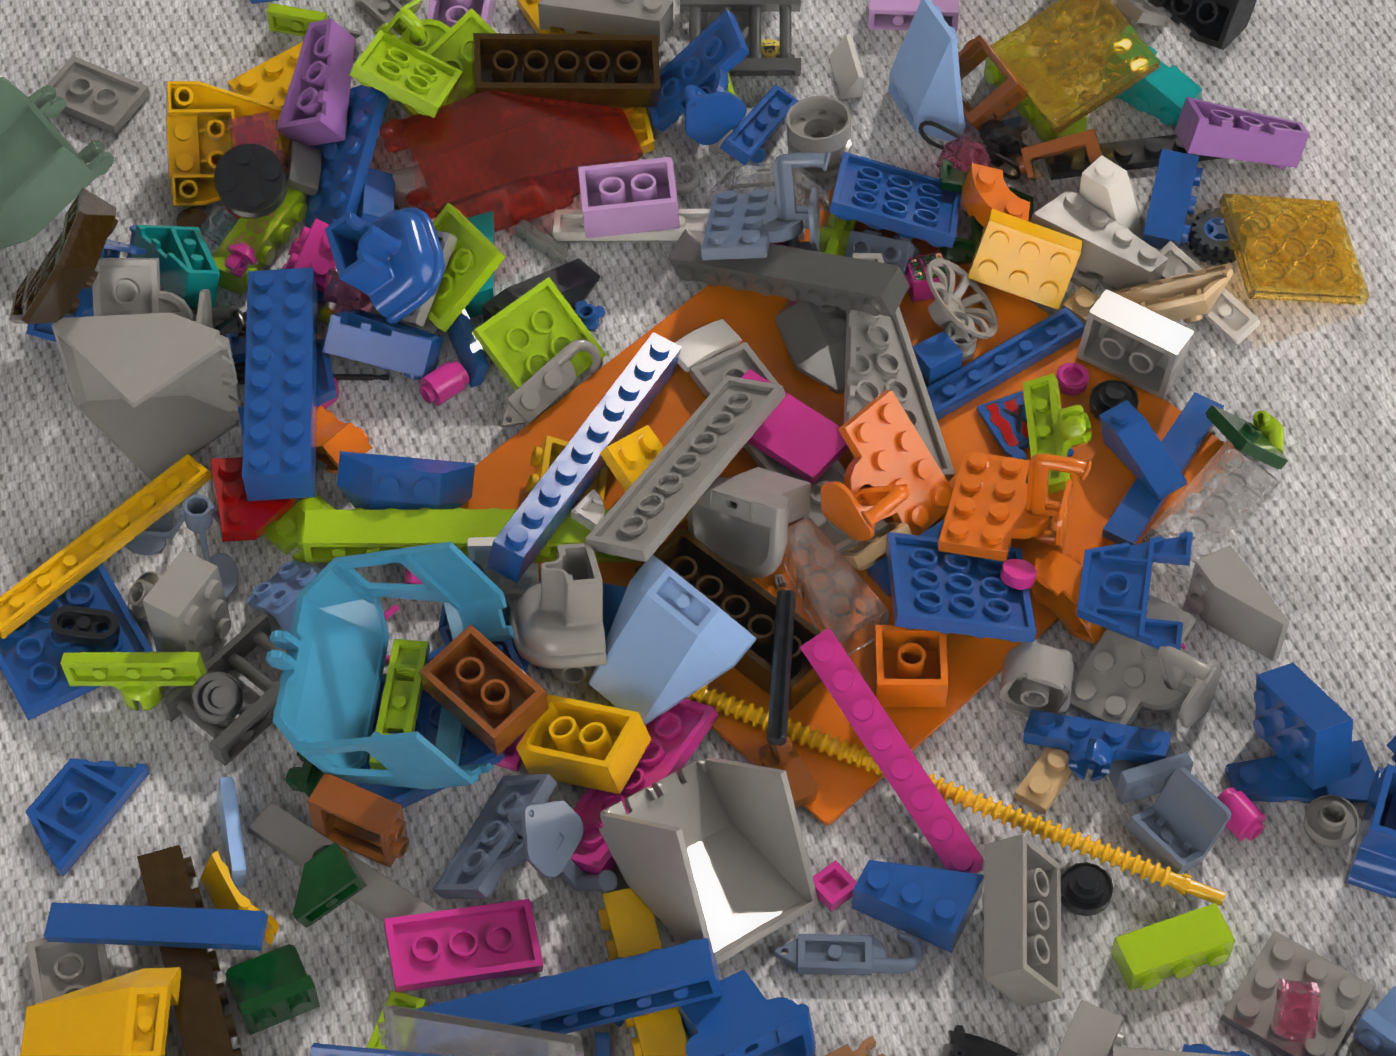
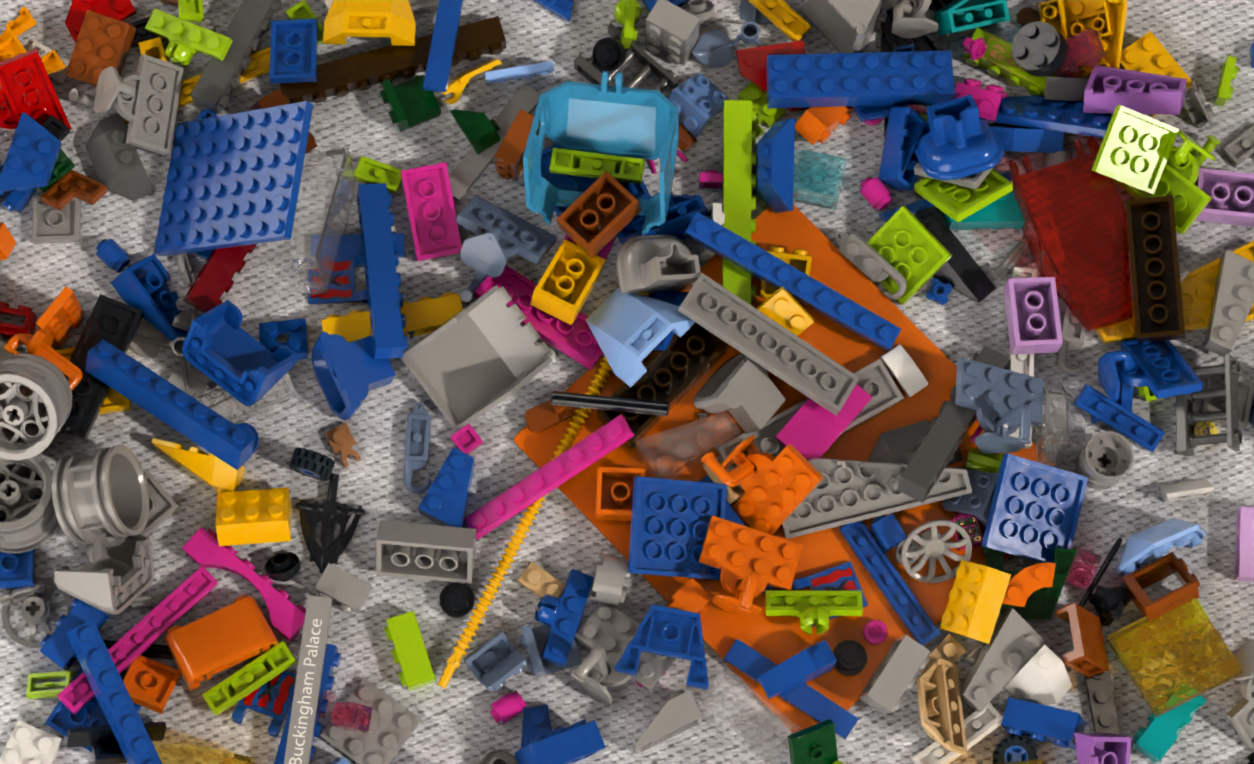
camera: 90 degrees right, 20 degrees up
(425, 432) = (818, 179): none -> clear light blue brick
(589, 510) = (745, 285): white tile -> none
(1018, 574) = (687, 569): dark pink tile -> none

